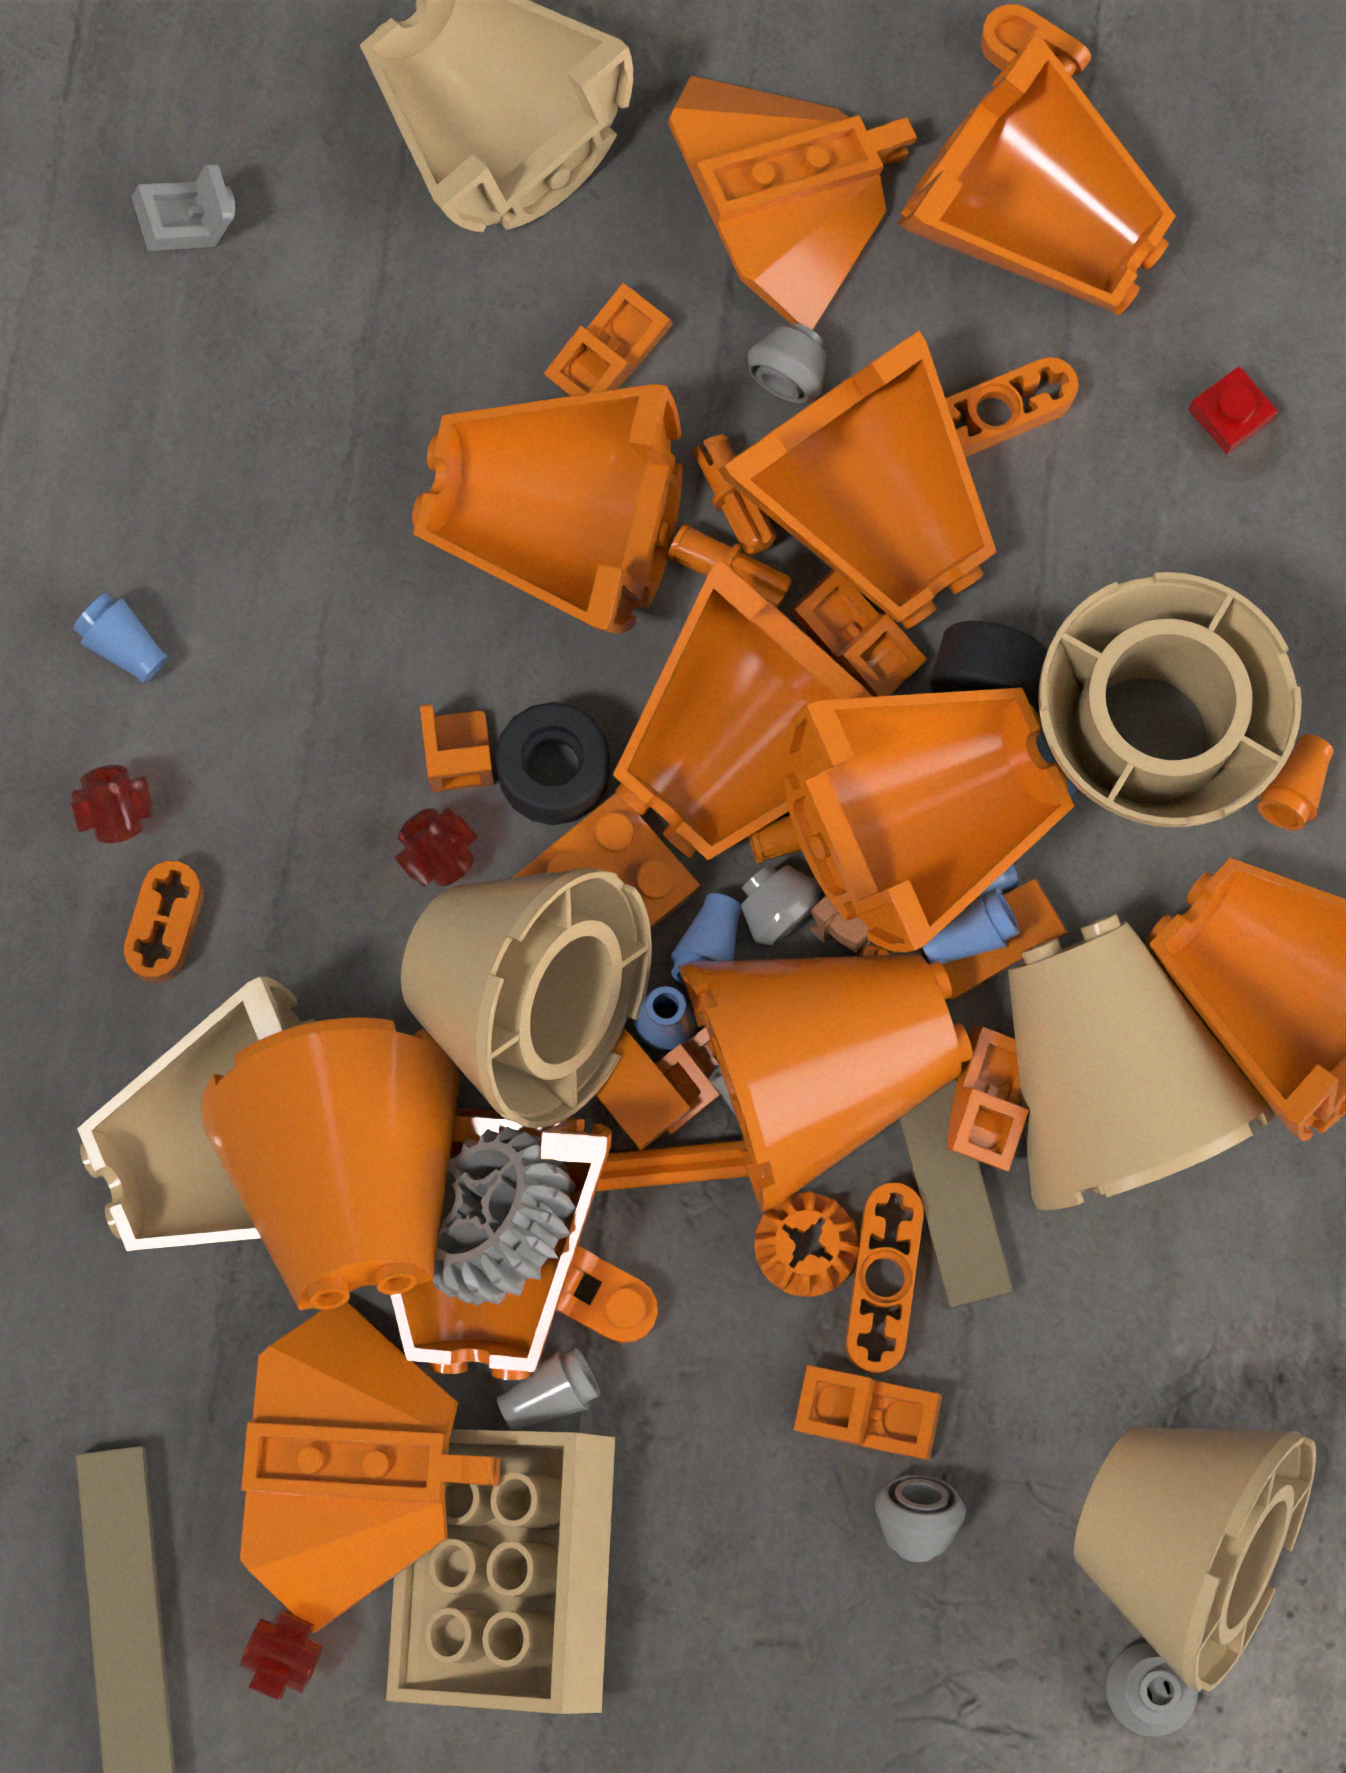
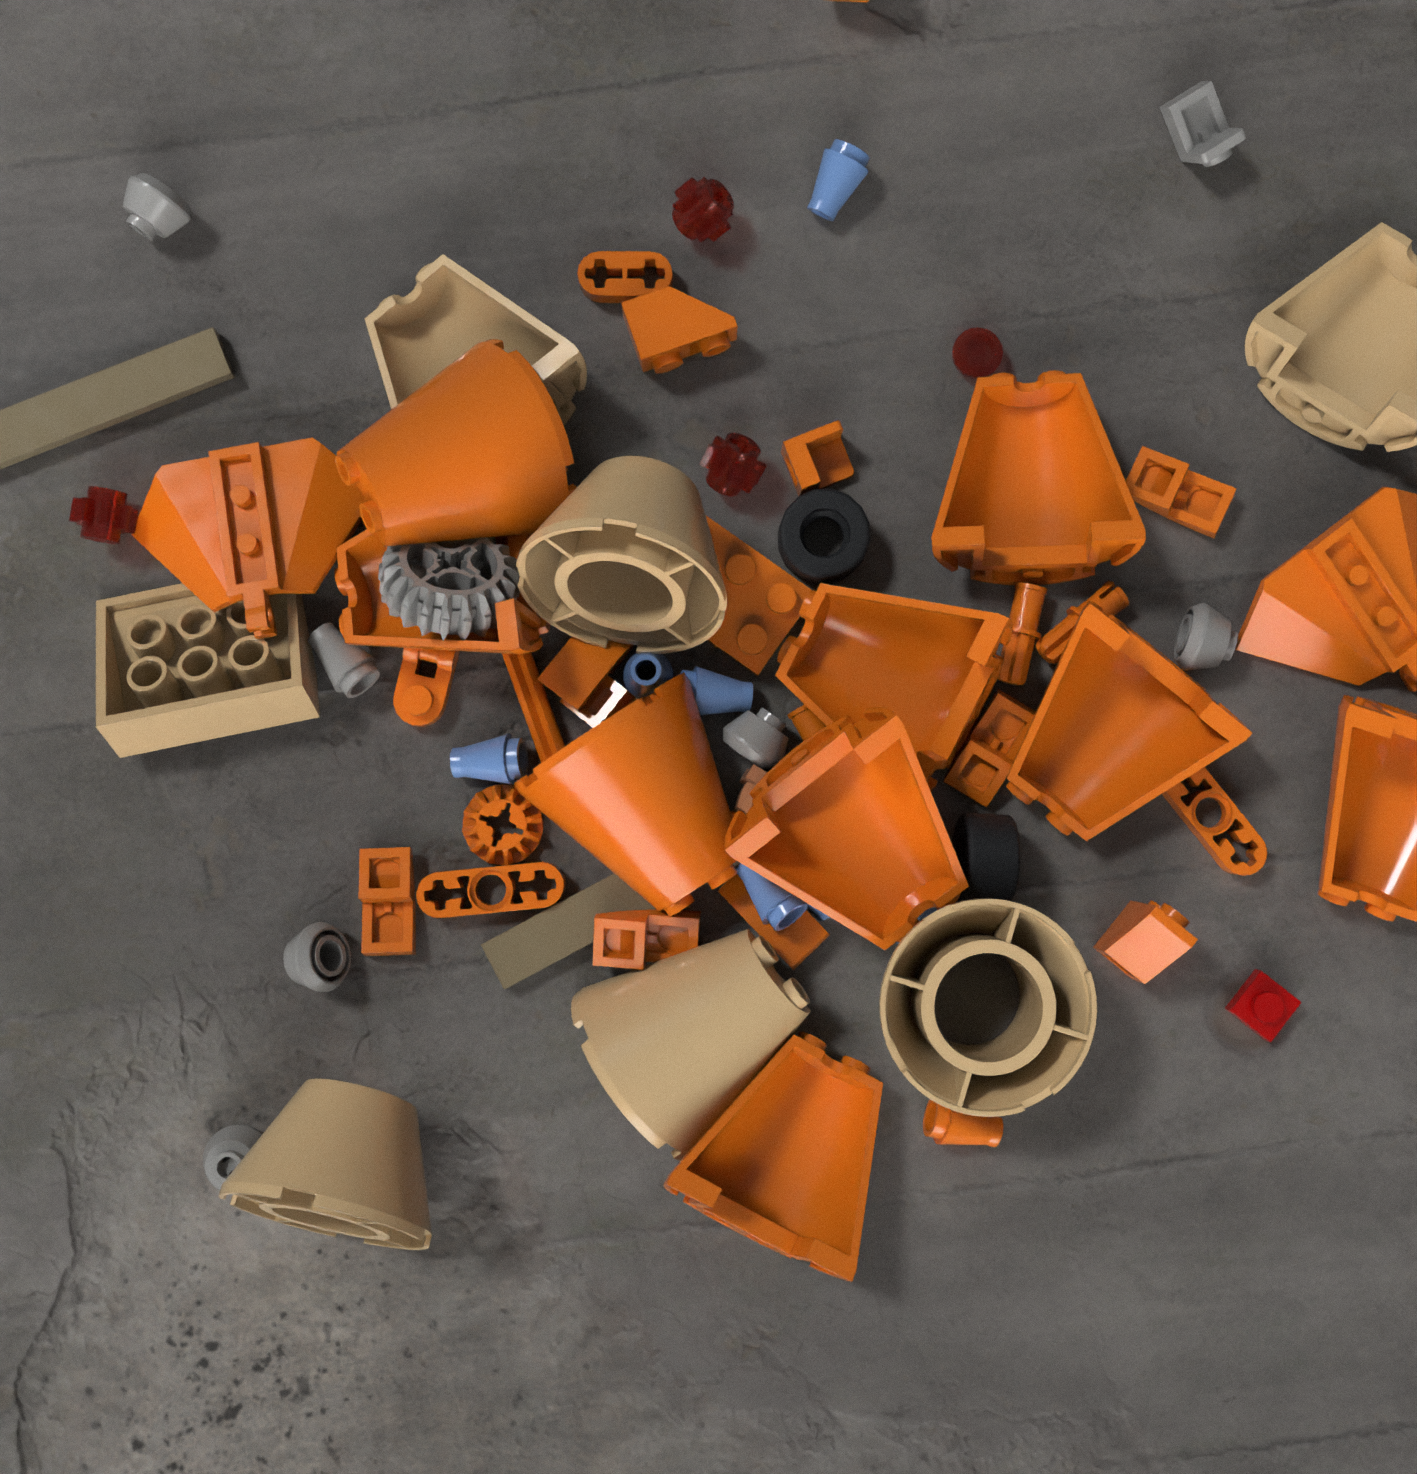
camera: 80 degrees right, 10 degrees up
(244, 877) = (674, 326): none -> orange slope
(378, 531) = (977, 352): none -> clear red plate
(723, 1234) = (495, 759): none -> medium blue cone
(1128, 515) = (1145, 939): none -> orange slope

